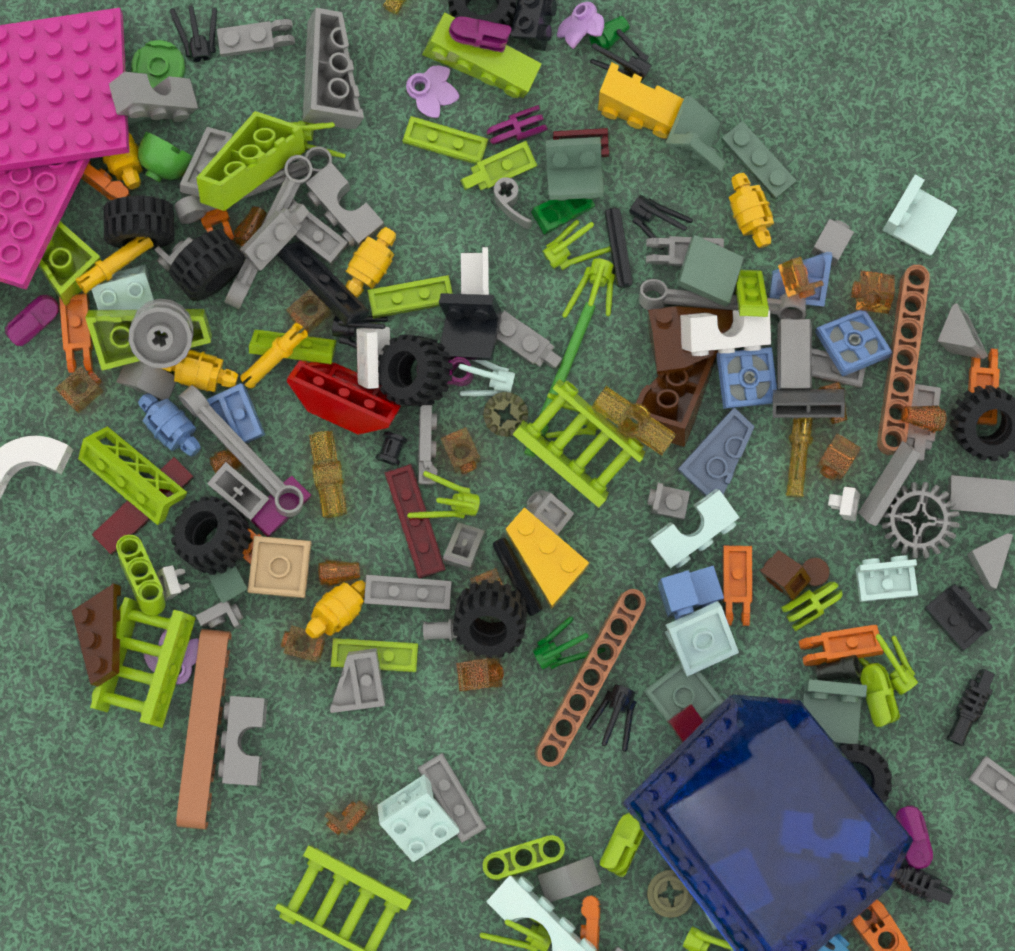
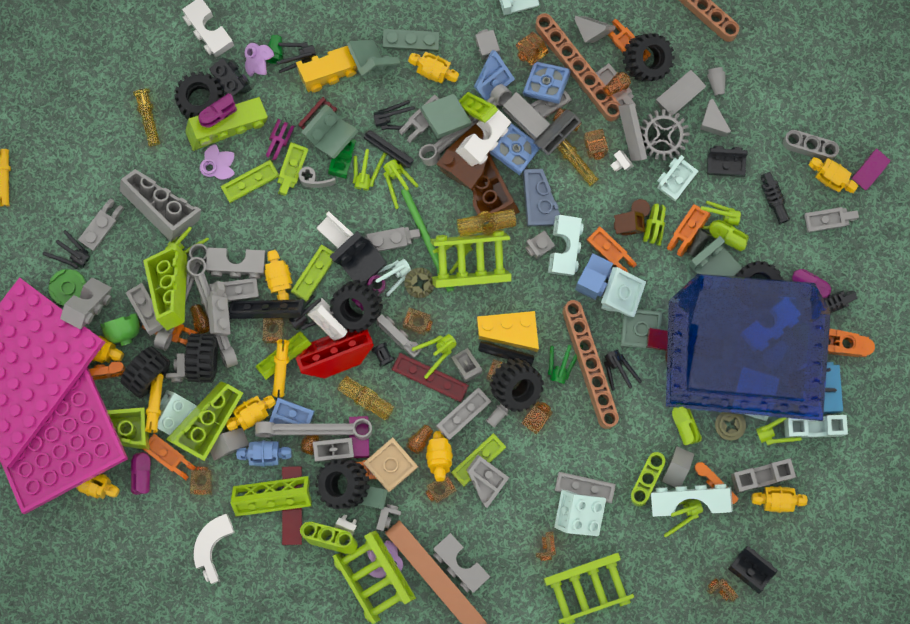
camera: 50 degrees left, 0 degrees up
(96, 632) = (338, 587): reddish brown wing -> none
(153, 348) = (229, 412): light grey wheel -> none
(549, 510) = (488, 306): light grey bracket -> none
(796, 279) = (491, 79): clear orange bracket -> none

